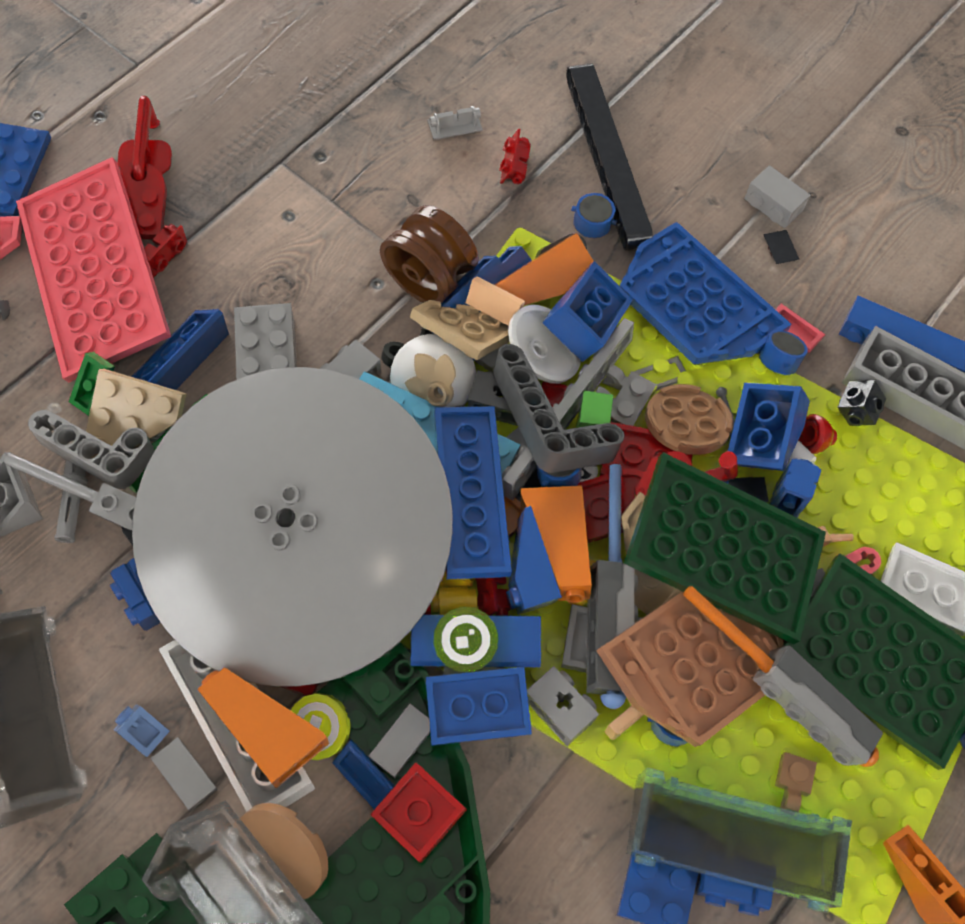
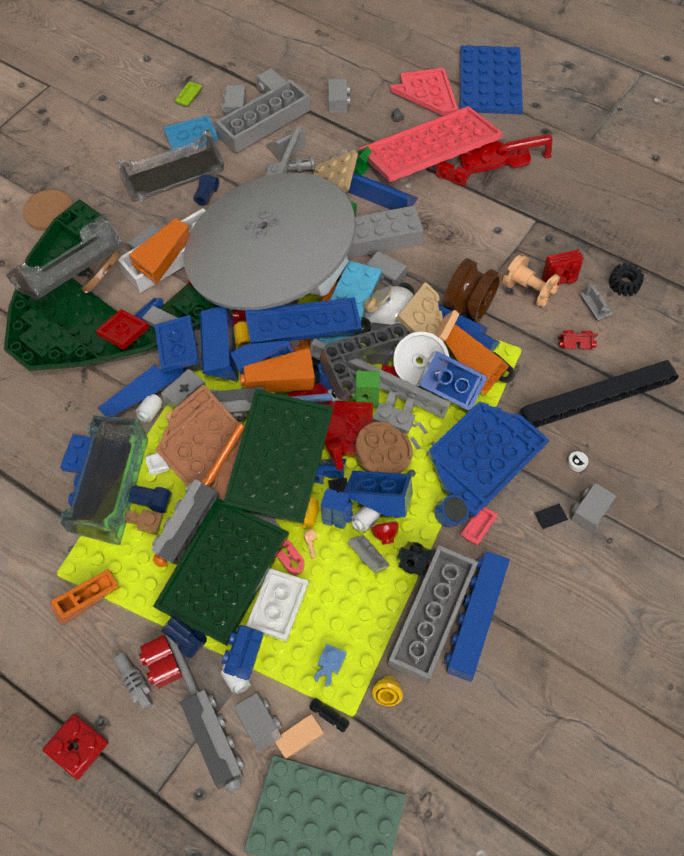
camera: 90 degrees right, 5 degrees down
(82, 649) = (207, 185): none -> dark blue piece
(86, 445) = (312, 155): light grey beam -> none
(140, 729) = (166, 215): medium blue bracket -> none
(328, 716) = (170, 285): neon yellow tile -> none
(398, 194) = (526, 277): none -> light nougat piece
(400, 142) = (565, 265): none -> red brick
(421, 92) = (628, 272): none -> black tyre
(465, 639) = (212, 330): clear neon green tile -> none
(545, 792) = (139, 389): none -> blue wedge
(577, 773) = (149, 408): none -> white brick
(594, 215) = (541, 388): piece -> none
(688, 761) = (156, 464): none -> white tile
(704, 201) = (577, 461): none -> white tile
(760, 762) = (155, 499): none -> dark blue piece
(851, 461) = (368, 554): none -> light grey plate

